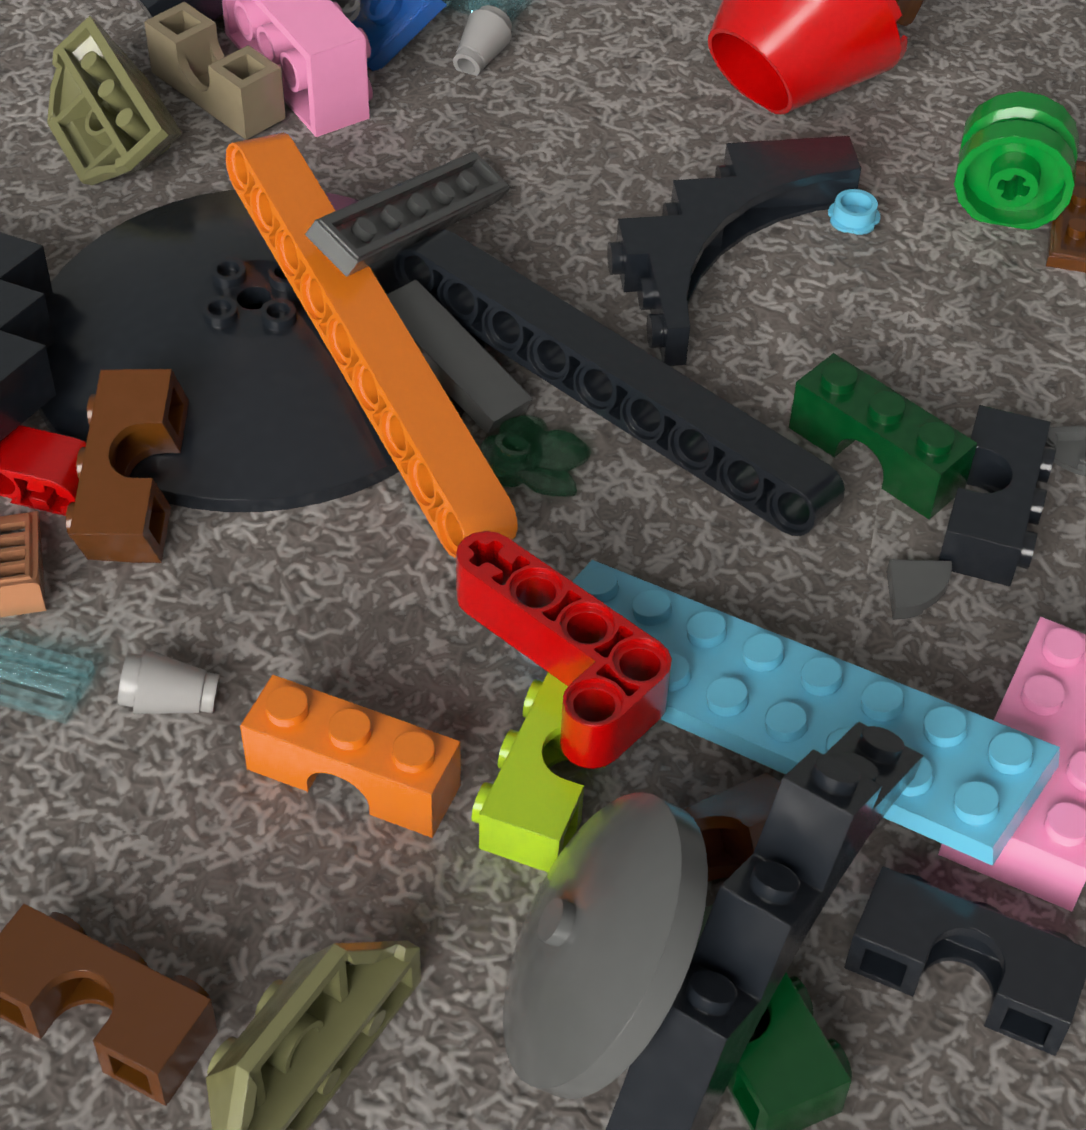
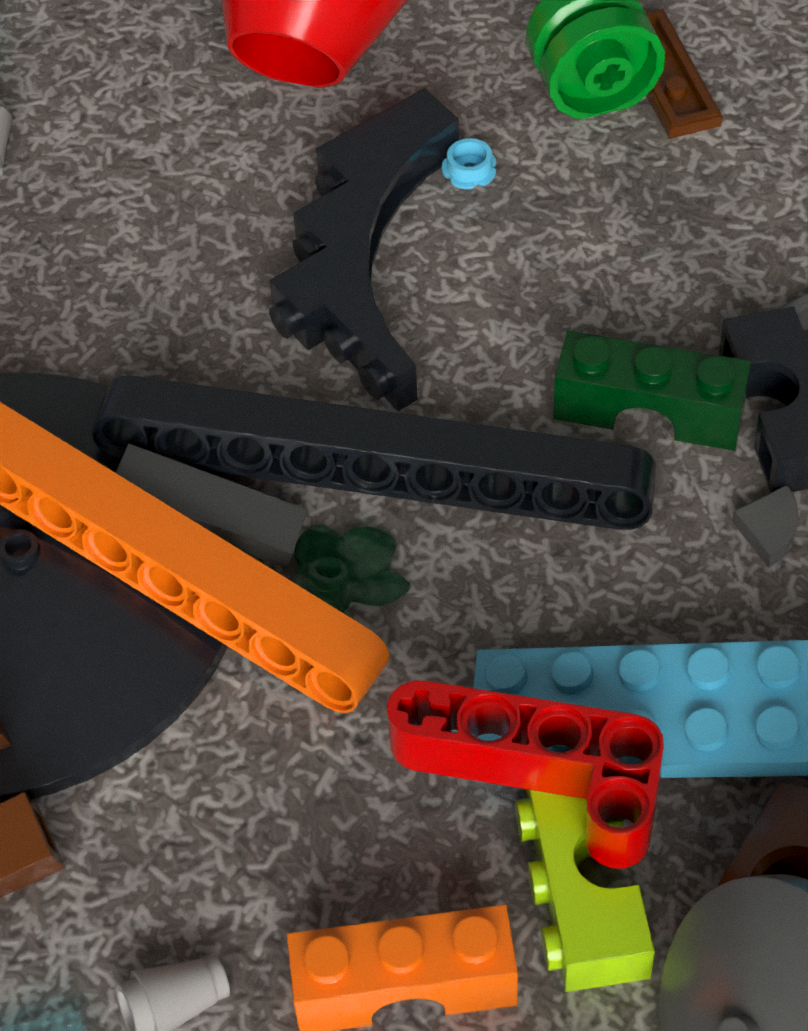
camera: 25 degrees left, 5 degrees up
(406, 213) = (76, 377): dark grey tile -> none

